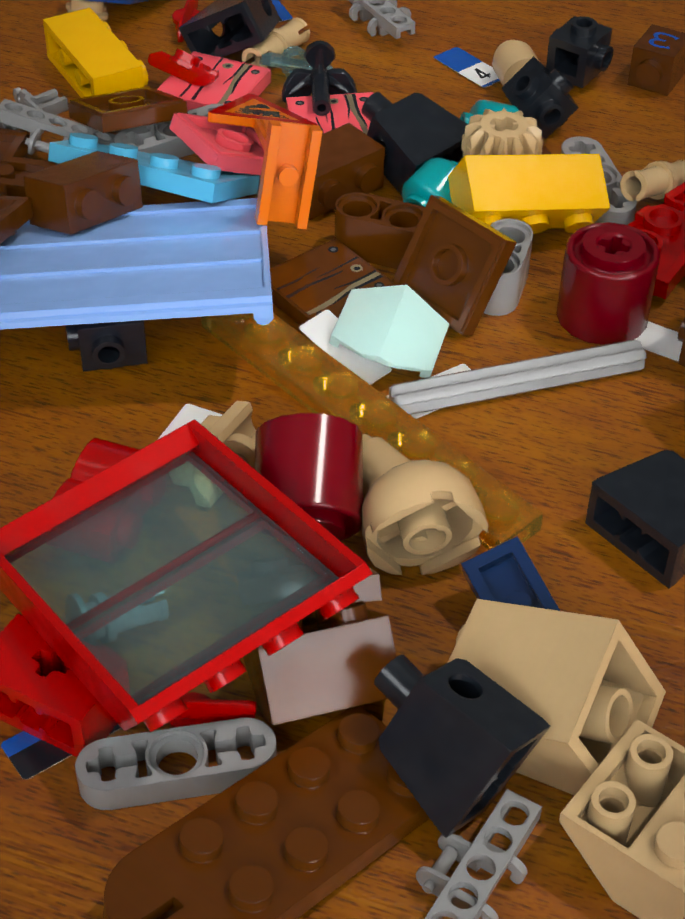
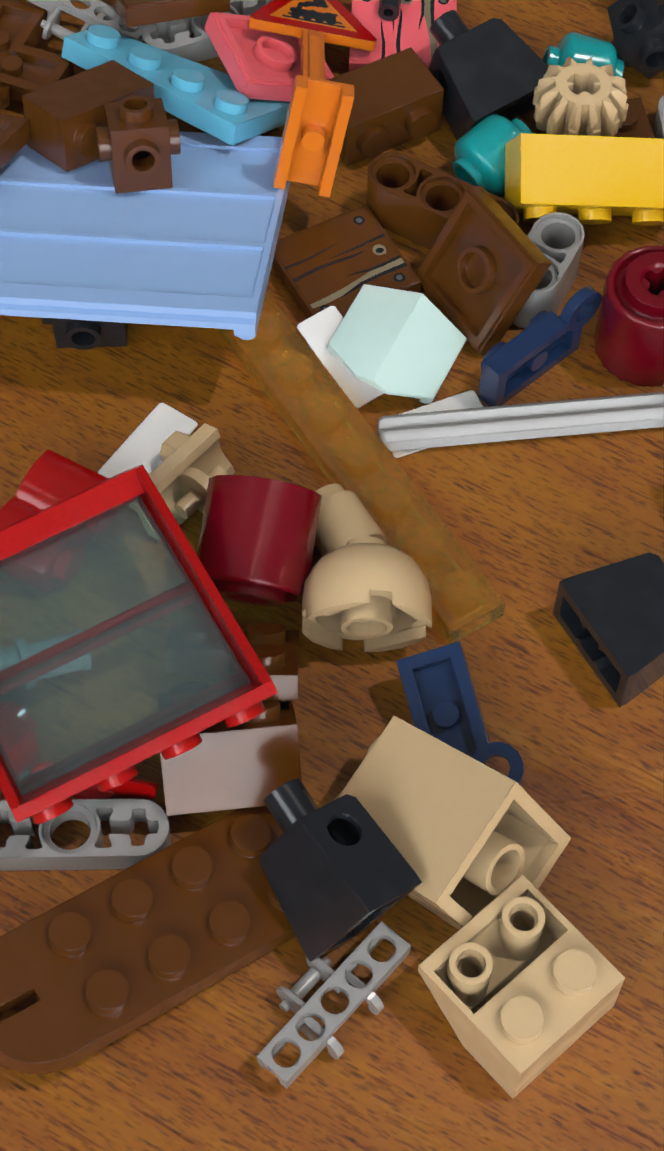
camera: 10 degrees right, 15 degrees up
(133, 199) = (138, 144): none -> reddish brown brick
(514, 320) = (537, 349): none -> dark blue hinge

